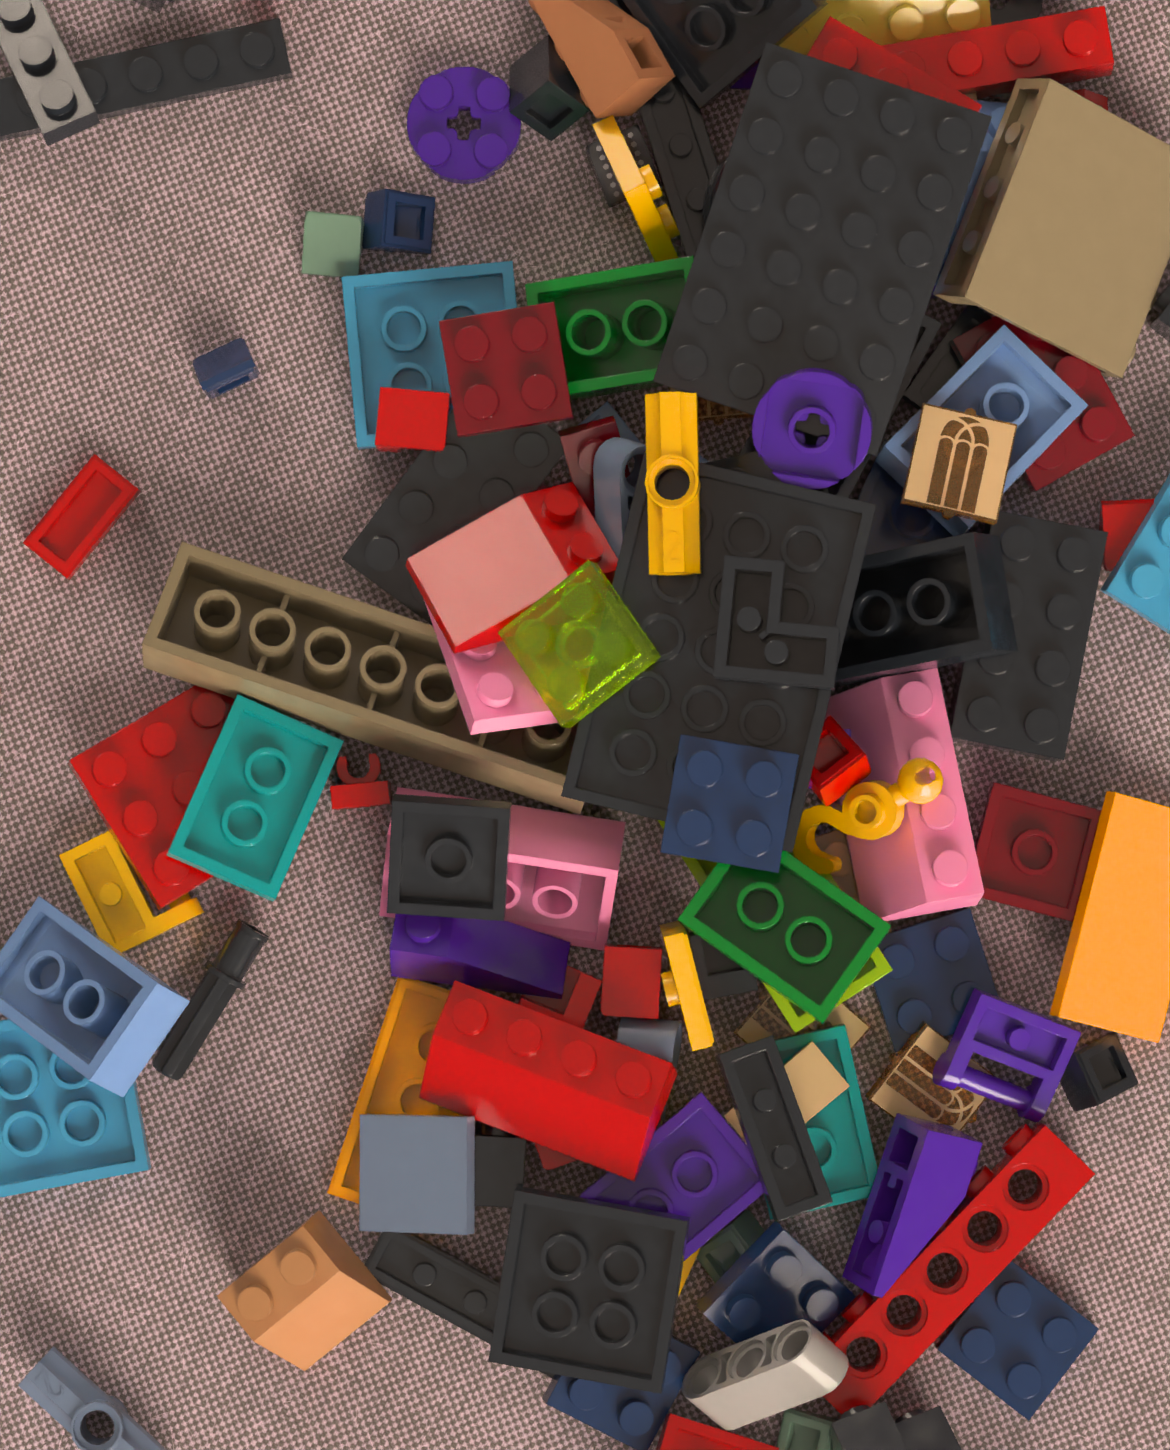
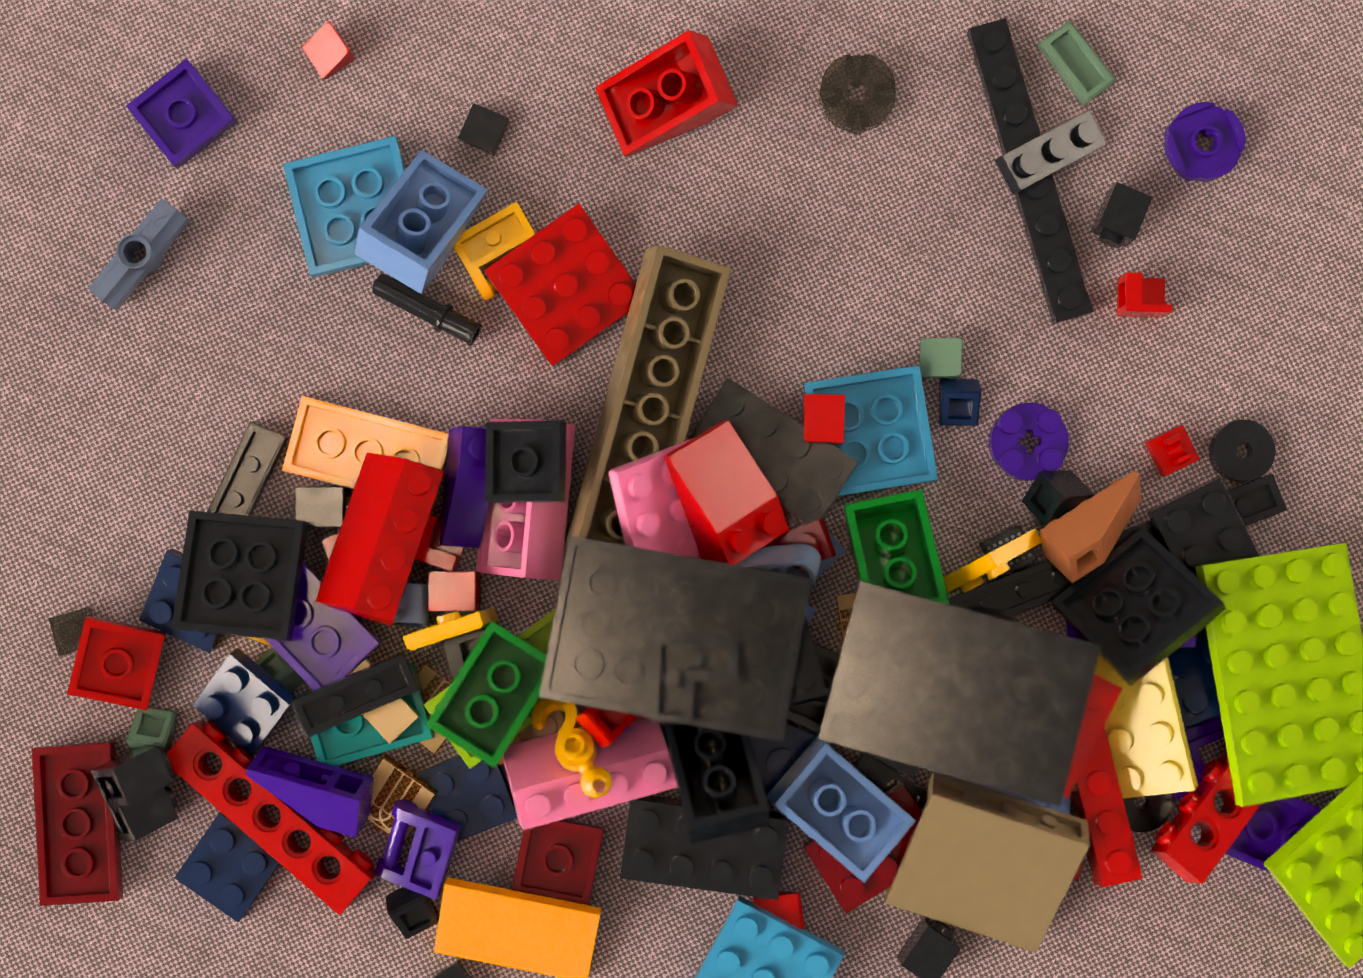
camera: 90 degrees right, 0 degrees up
(81, 517) = (745, 202): red tile -> none
(225, 368) = (852, 291): dark blue slope -> none
(255, 798) = (560, 329): teal plate -> none
(305, 1294) = (232, 384): medium nougat slope -> none
(360, 791) = (571, 400): red tile -> none
(417, 1174) = (314, 454): sand blue tile -> none
(506, 369) = (862, 480): dark red plate -> none
(579, 644) = (673, 541): clear neon green plate -> none
(671, 444) = (816, 598): yellow piece -> none
(729, 803) = (569, 652): dark blue plate -> none
(765, 1375) = (190, 698): light grey beam -> none
(833, 455) = (815, 709): dark purple plate -> none
(959, 463) = (816, 796): piece -> none

